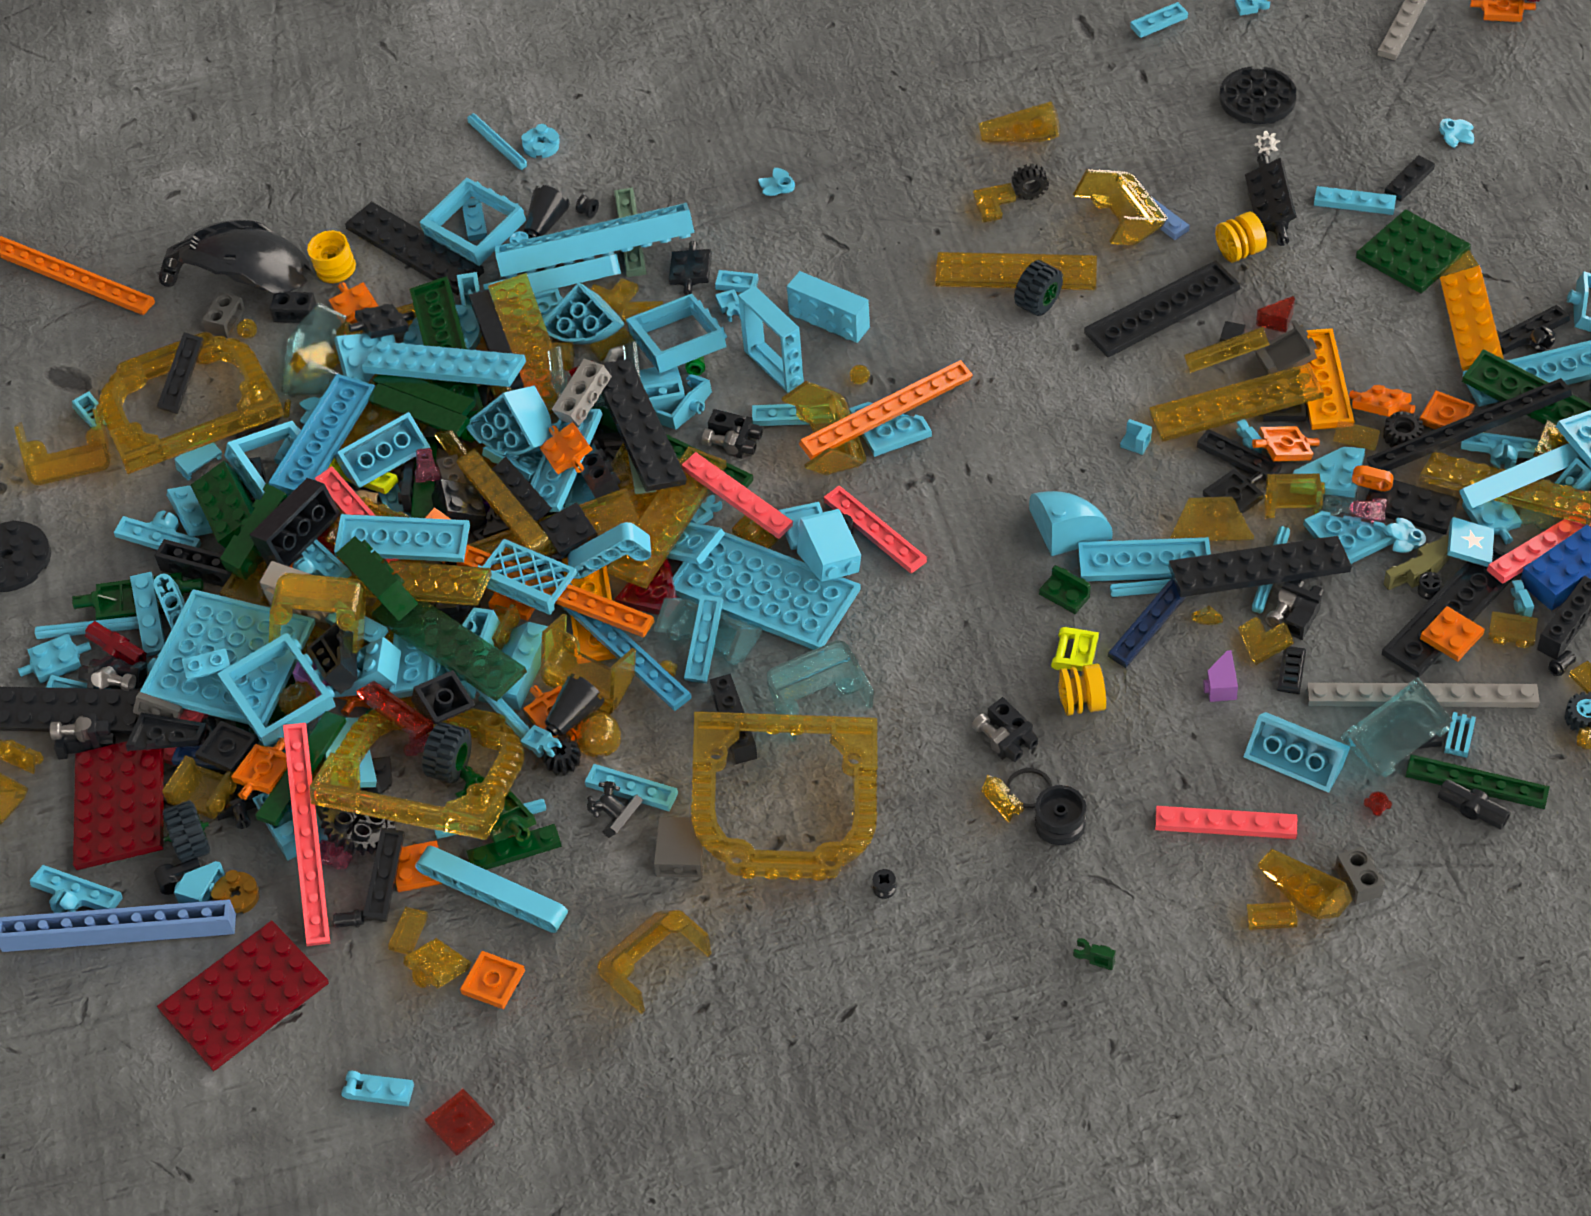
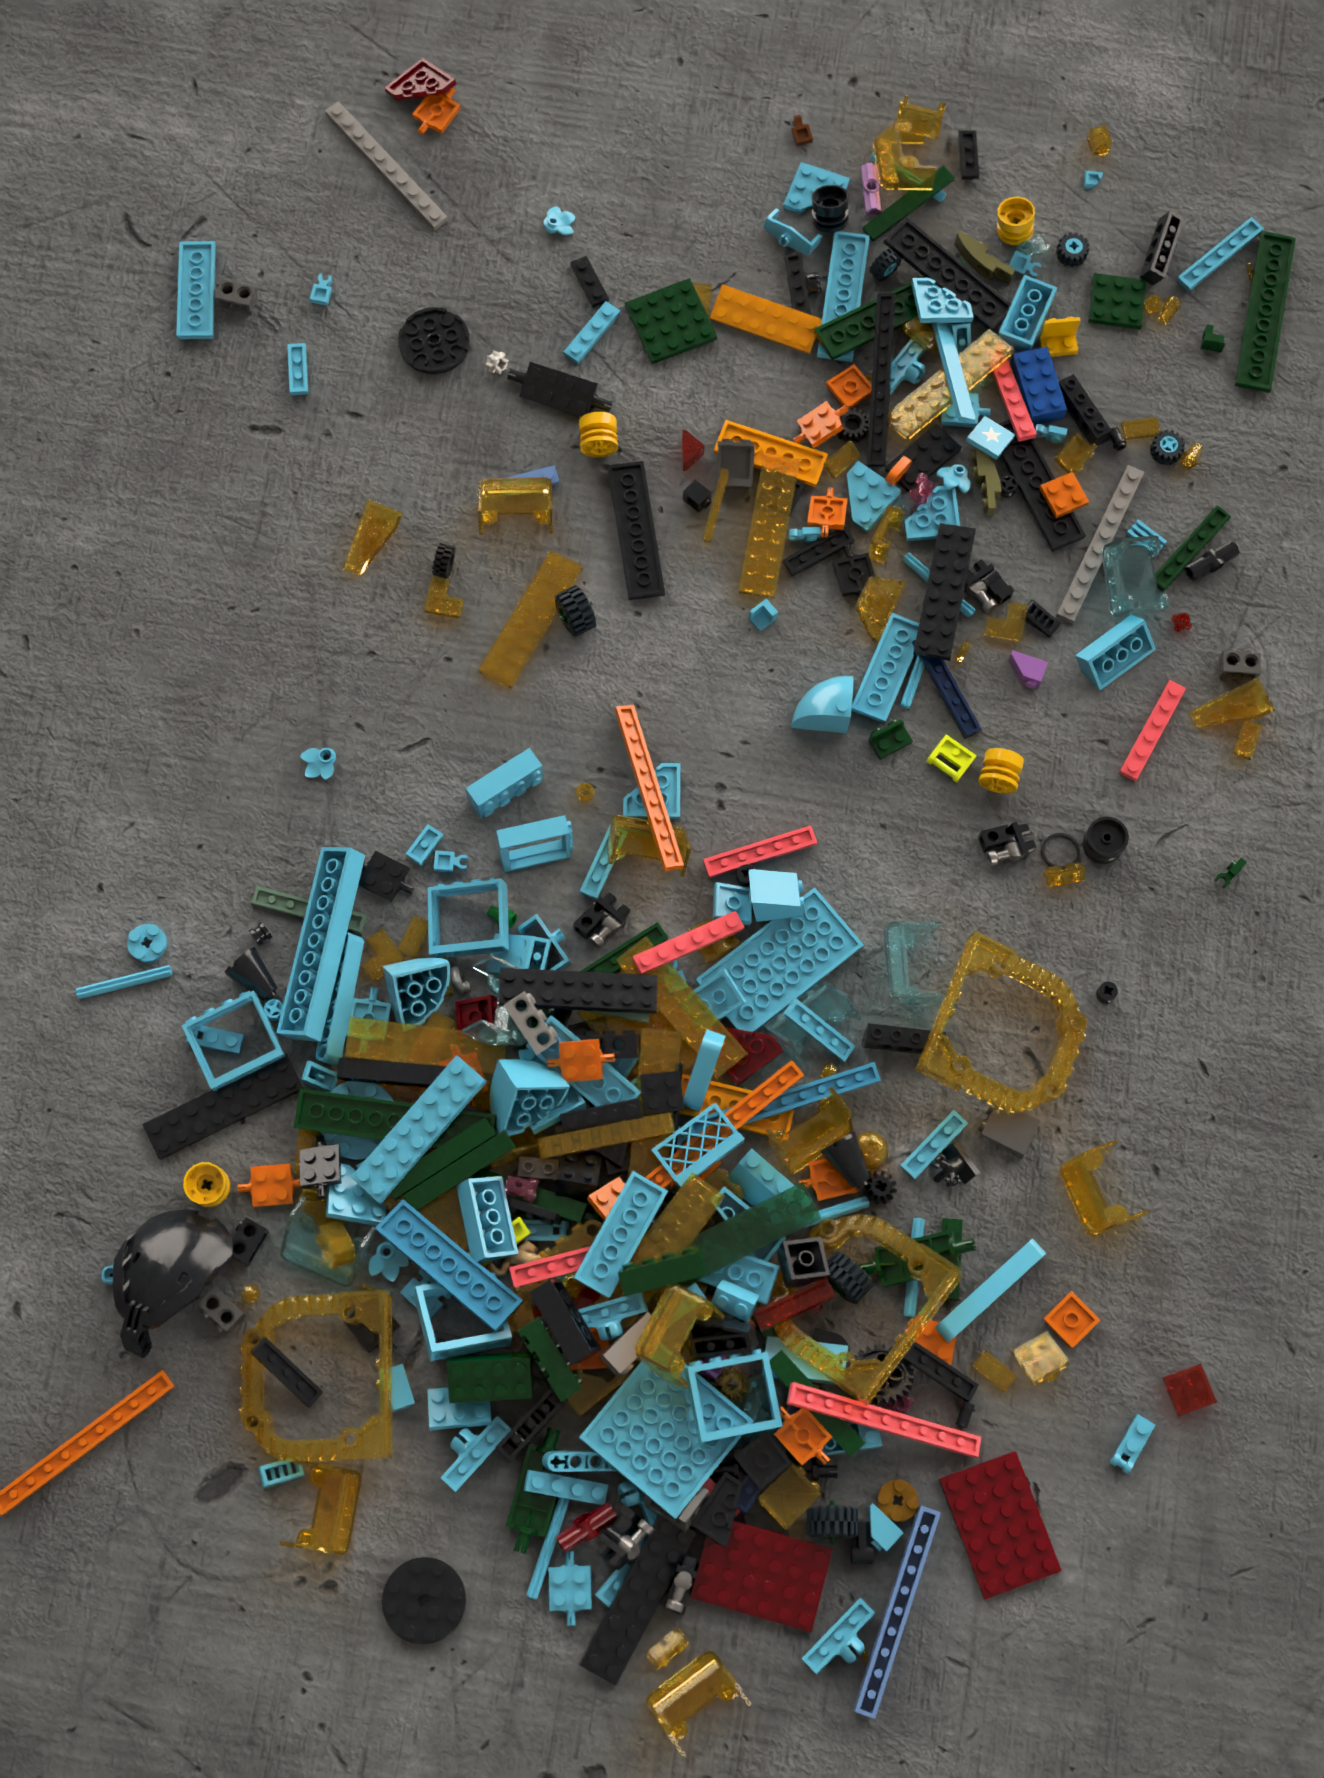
camera: 75 degrees left, 20 degrees up
(206, 664) = (683, 1449): medium azure bracket -> none
(539, 740) = (866, 1200): medium azure plate -> none

